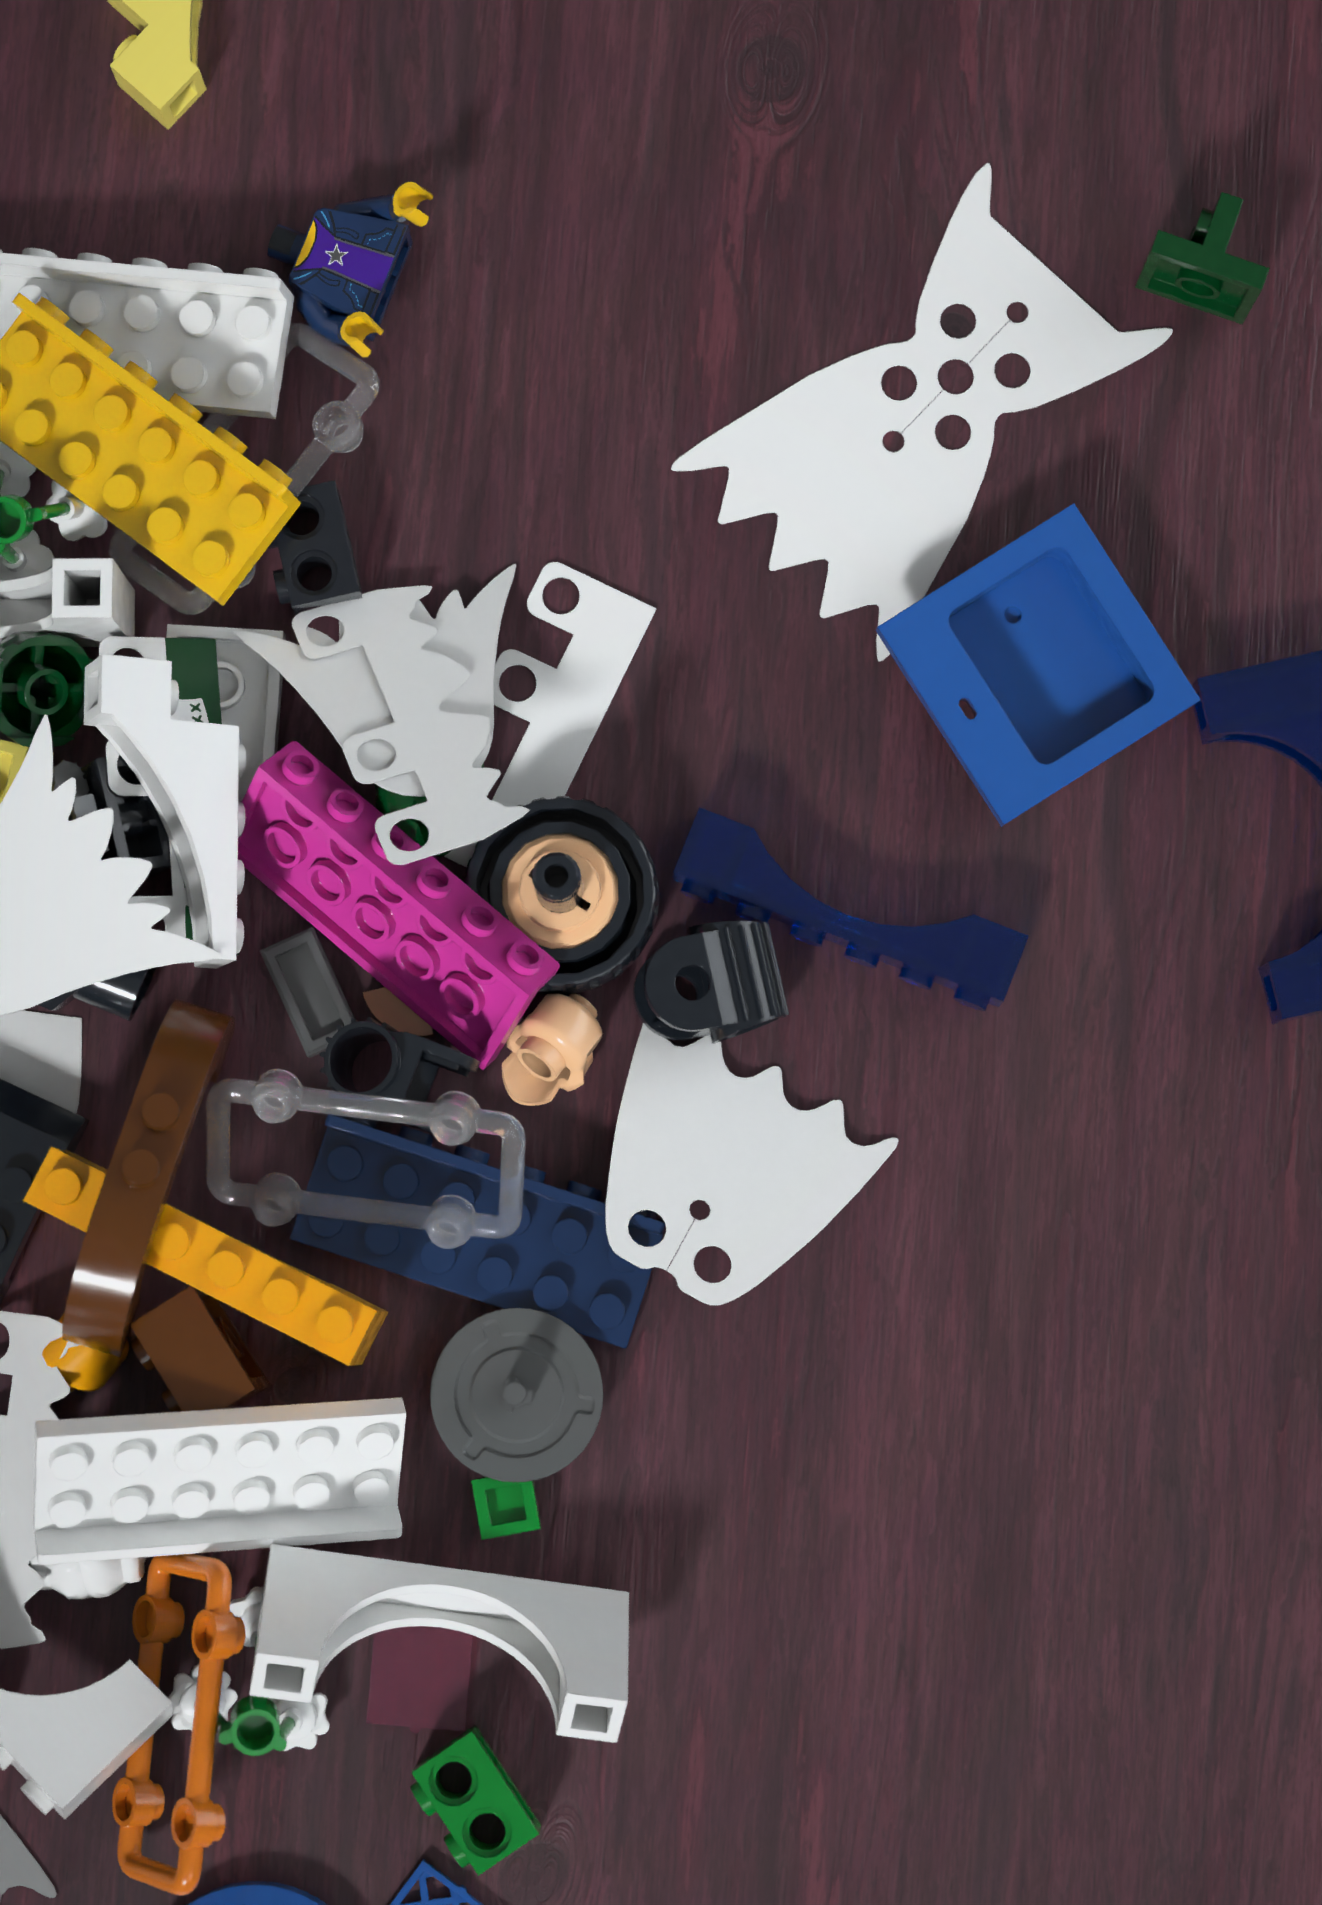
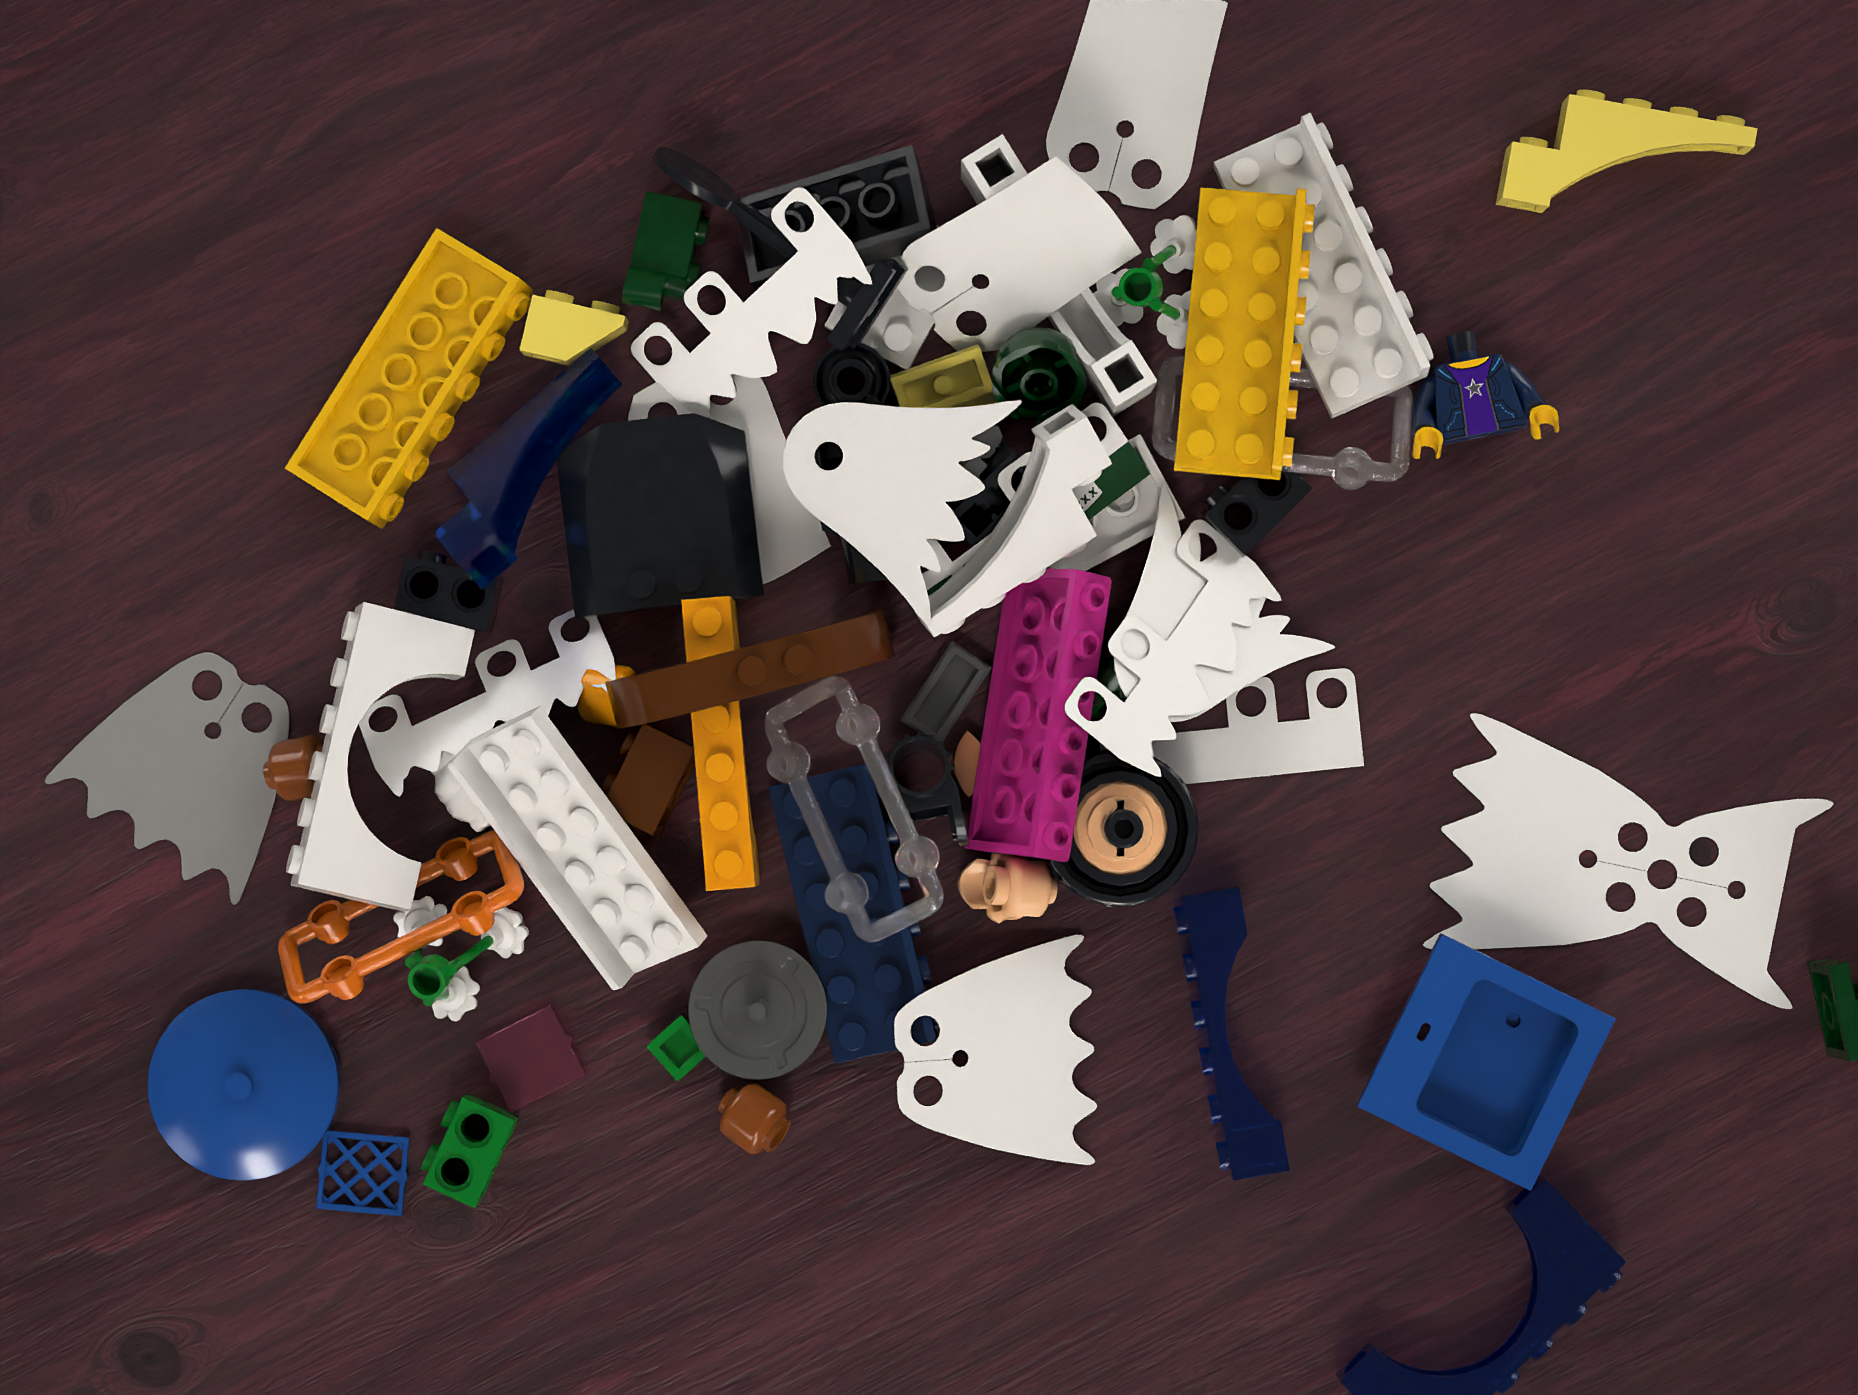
camera: 65 degrees right, 5 degrees up
(559, 1631) = (616, 1140): white arch -> none
(630, 1471) = (753, 1118): none -> dark orange head
(732, 976) = (1130, 985): black piece -> none

